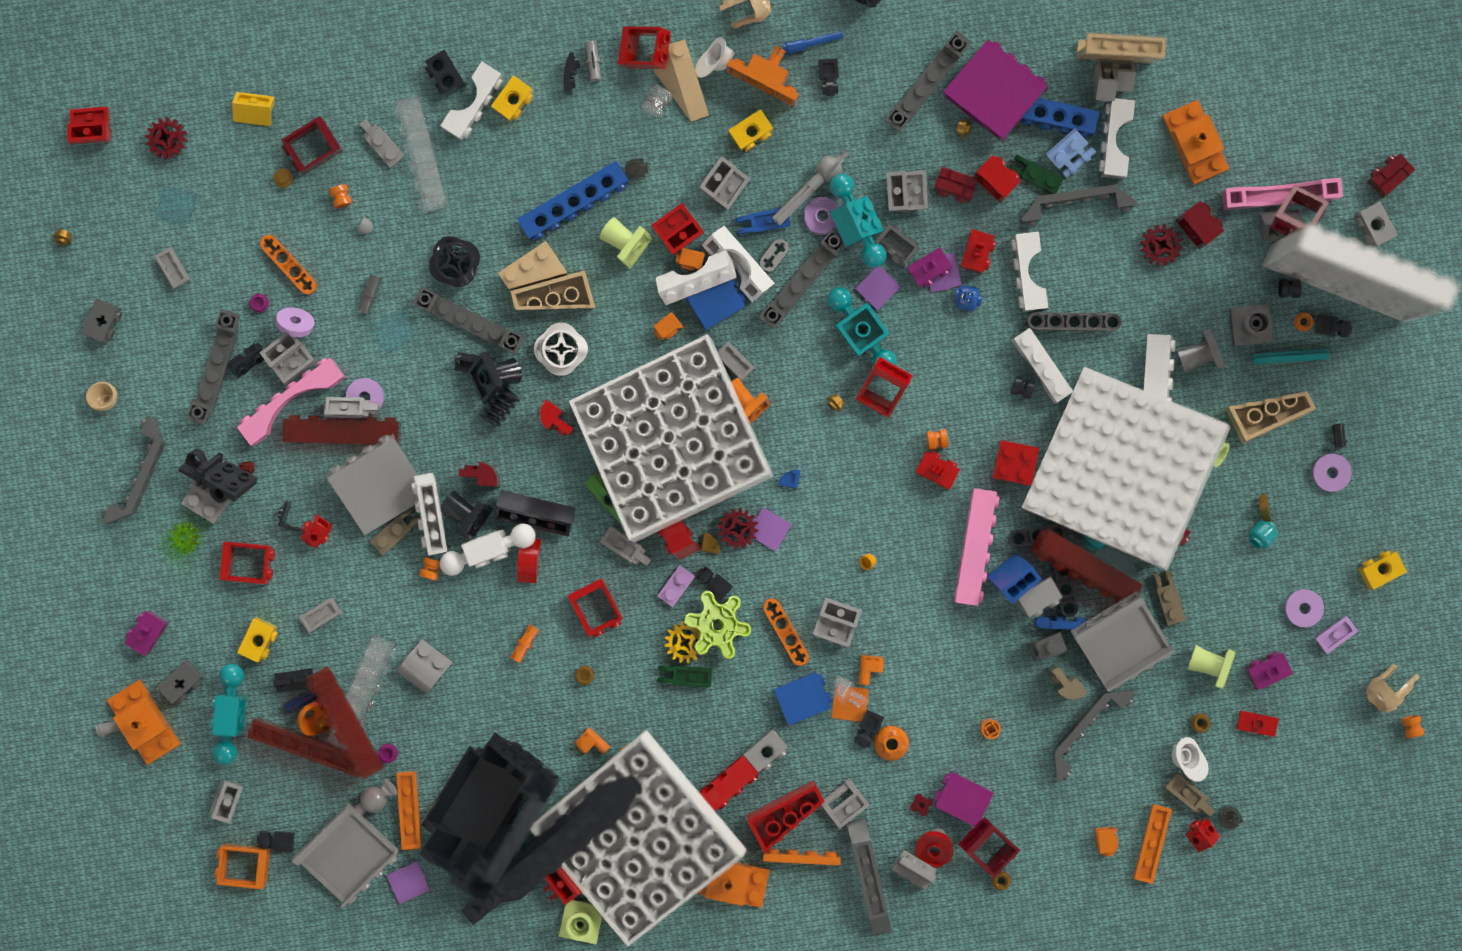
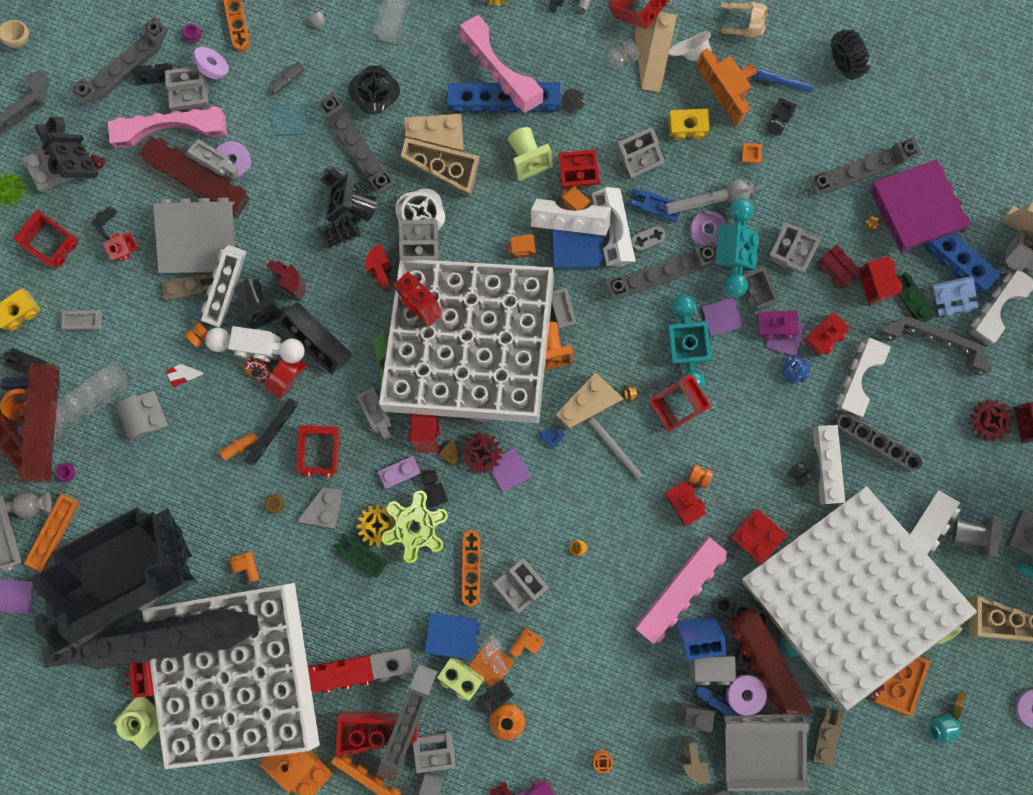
camera: 30 degrees right, 5 degrees down
(435, 611) = (182, 374): none -> white sticker
(501, 569) = (257, 370): none -> red piece
(545, 615) = (271, 432): none -> black tile
(575, 375) = (418, 239): none -> light grey brick
(589, 189) = (522, 89): none -> bright pink arch
(612, 432) = (420, 300): none -> red window
(629, 655) = (323, 509): none -> light grey wing
(804, 430) = (589, 401): none -> tan wedge
(807, 791) = (406, 722): none -> dark grey slope
(821, 125) = (751, 153): none -> orange plate
(831, 724) = (464, 673): none -> yellowish green brick
(851, 457) = (616, 449): none -> light grey bar
(1089, 607) = (756, 700): none -> lavender tile
(1209, 518) = (904, 688): none -> orange tile

